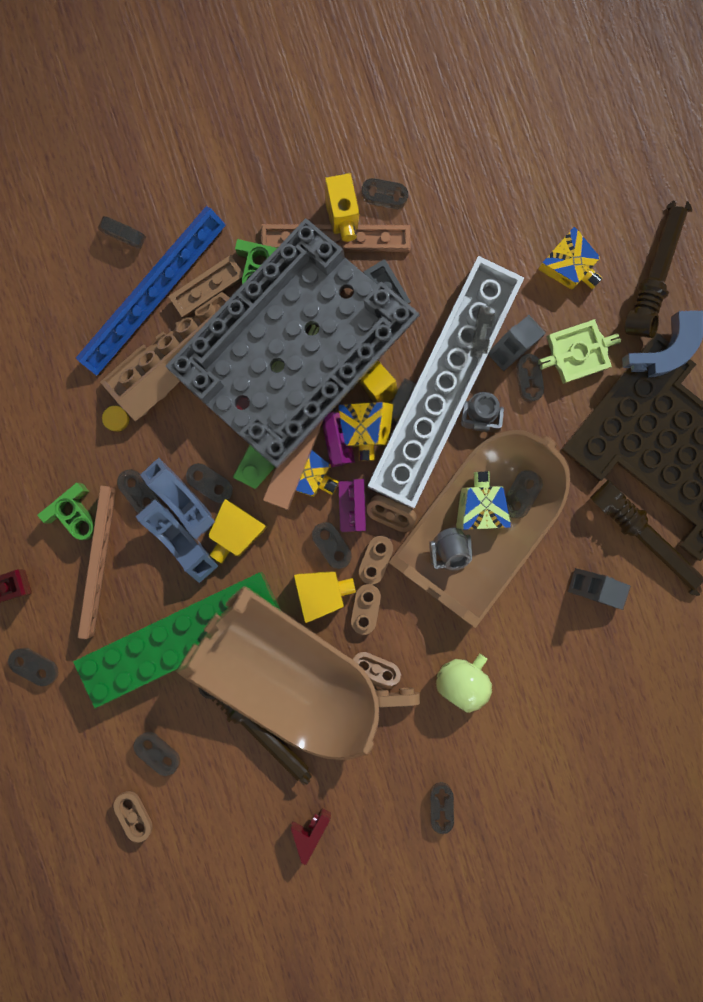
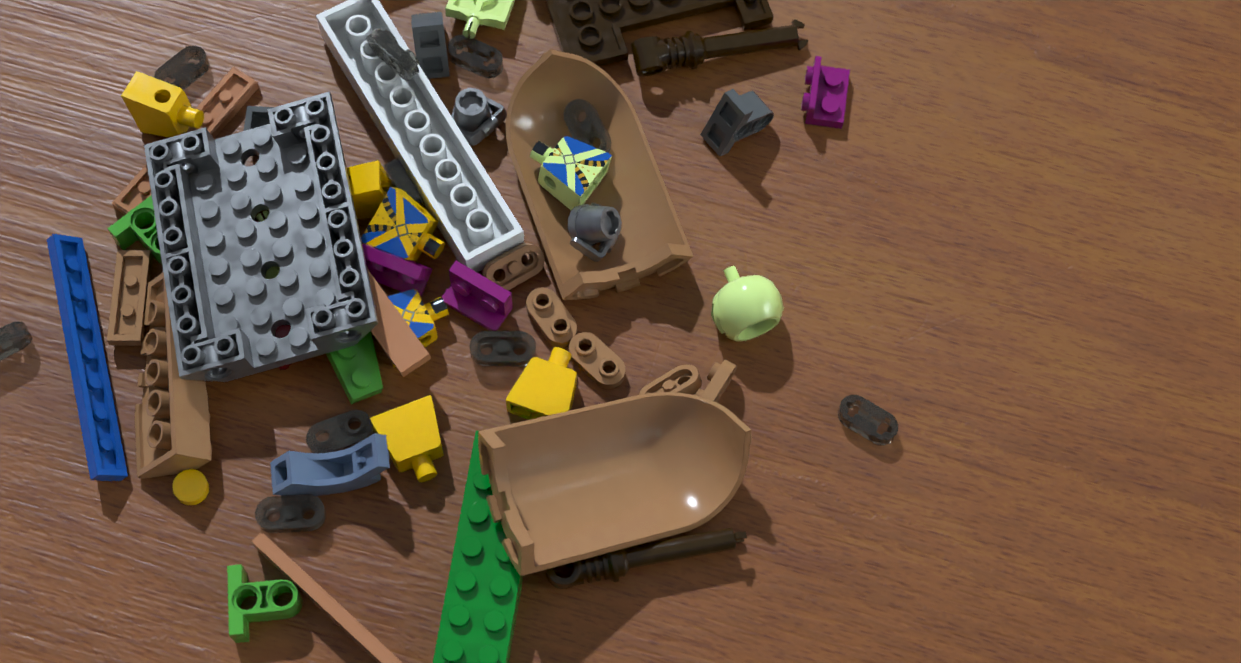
camera: 60 degrees left, 20 degrees down
(178, 540) = (377, 503): sand blue arch -> none
(306, 839) = (812, 582): dark red slope -> none
(664, 634) = (826, 96): none -> magenta bracket

